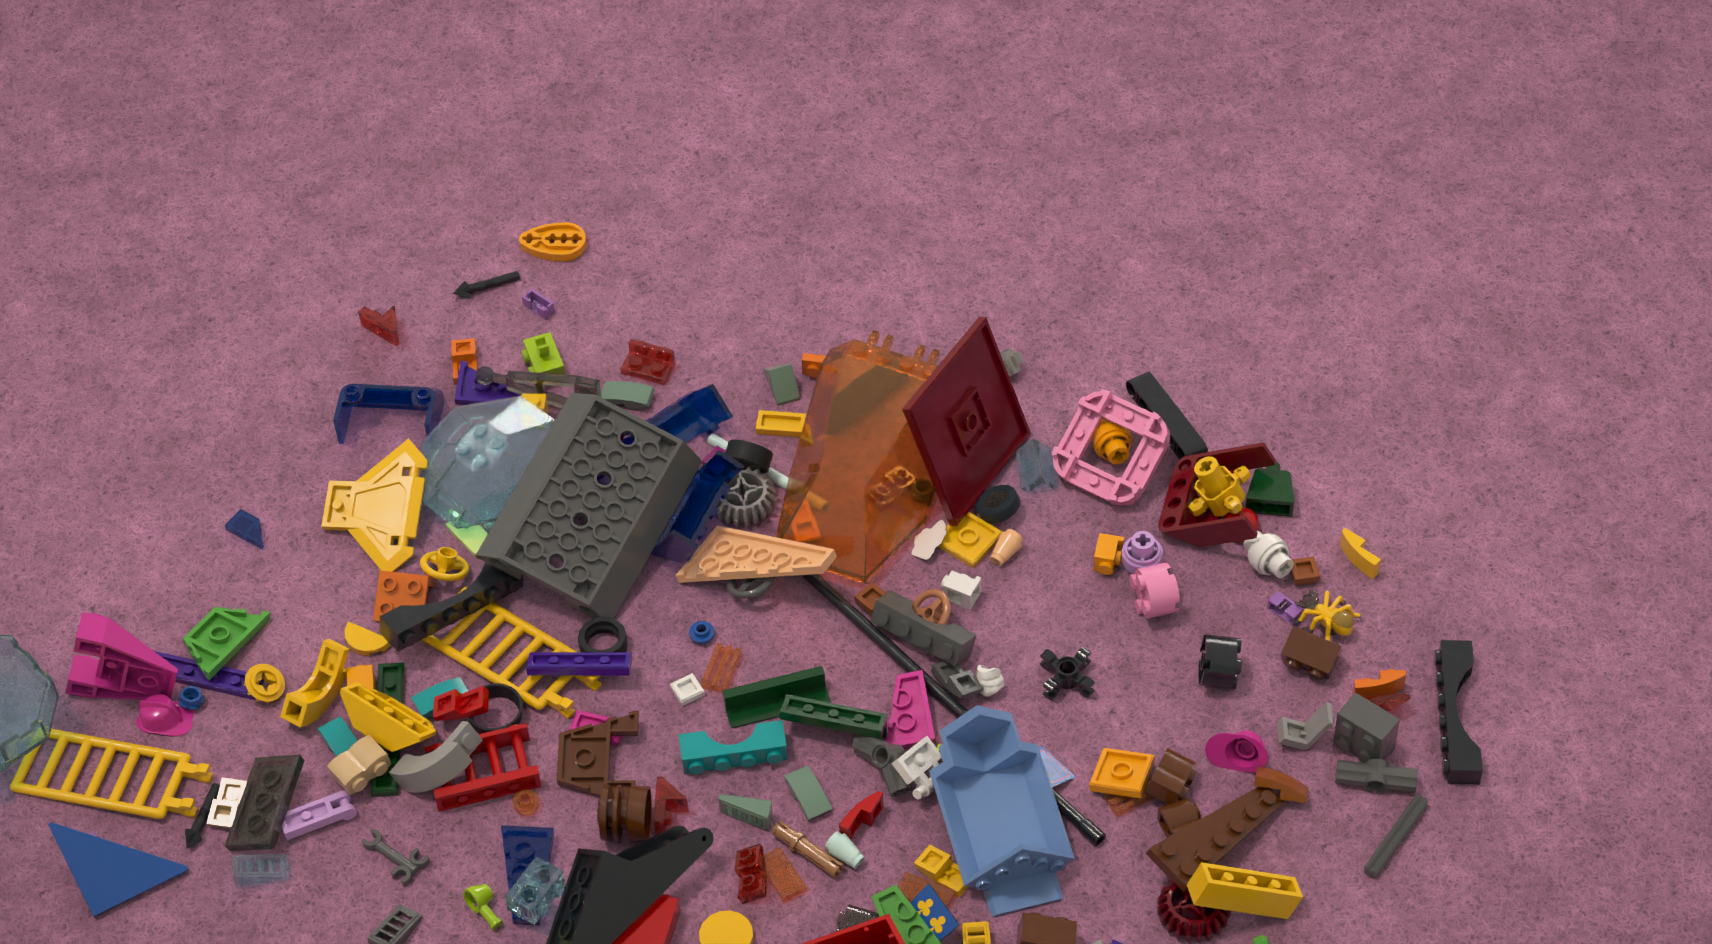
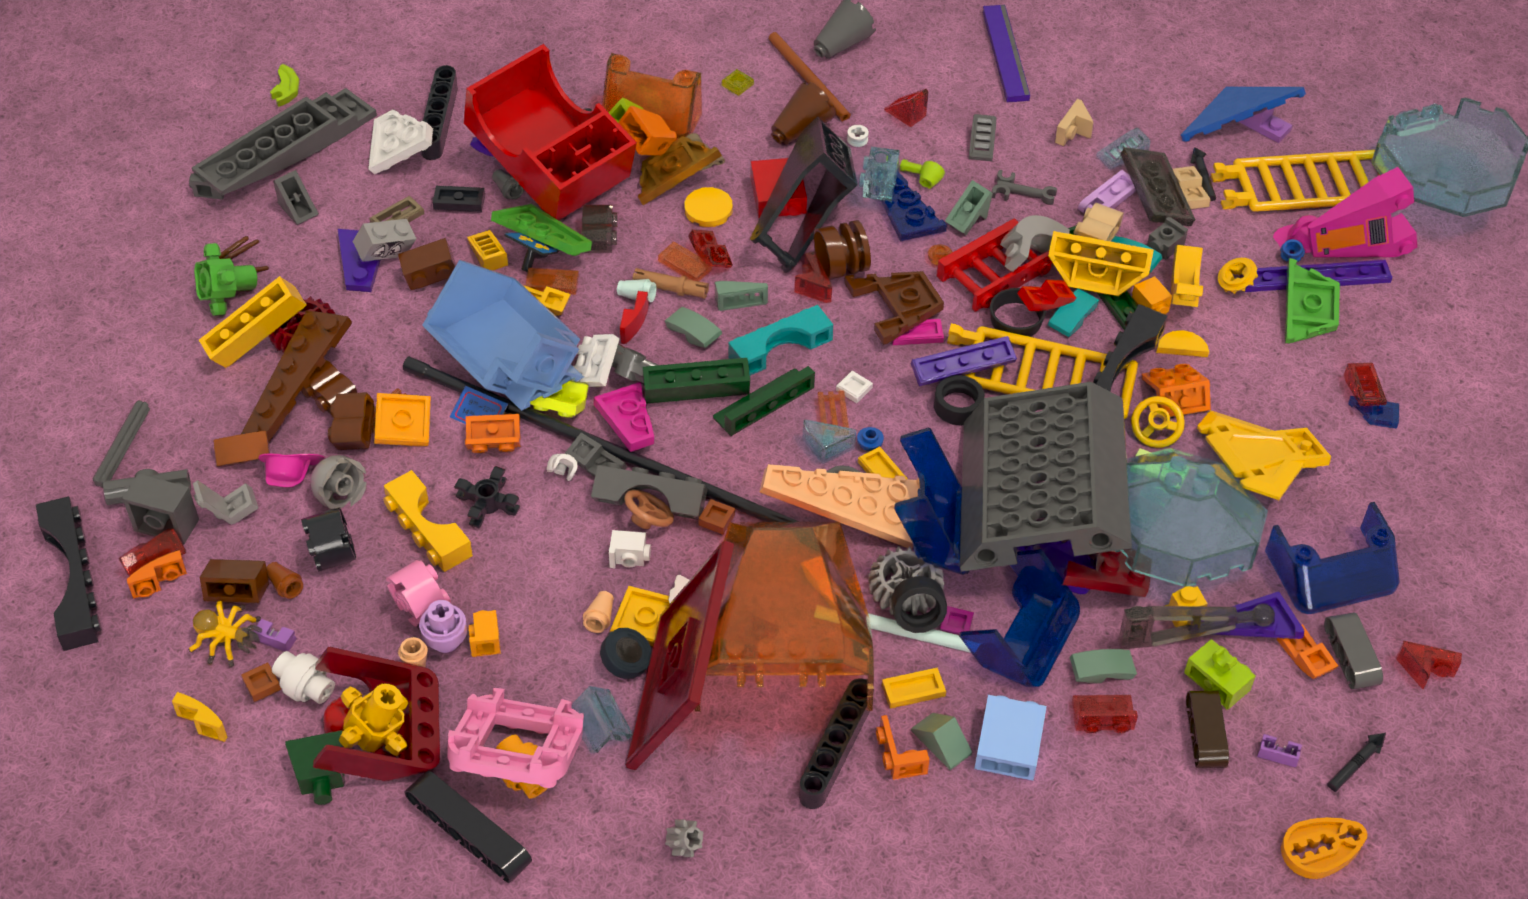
camera: 155 degrees right, 0 degrees up
(237, 560) = (1365, 371): none -> clear red slope
(286, 916) = (1075, 121): none -> tan slope
(300, 742) = (1167, 237): none -> dark grey brick
(429, 349) = (1354, 649): none -> dark grey beam
(469, 832) = (971, 205): none -> sand green slope
(580, 328) = (1208, 728): none -> dark brown beam
(706, 601) = (879, 463): none -> yellow tile
(730, 362) = (1010, 737): none -> light blue brick
(739, 633) = (828, 440): none -> clear light blue slope
(1044, 729) = (493, 432): none -> orange bracket
(1119, 641) = (444, 542): none -> yellow arch
(1173, 541) = (413, 652): none -> light nougat cone
(1200, 721) = (339, 476): none -> light grey cylinder
(1266, 650) = (284, 580): none -> dark orange cone

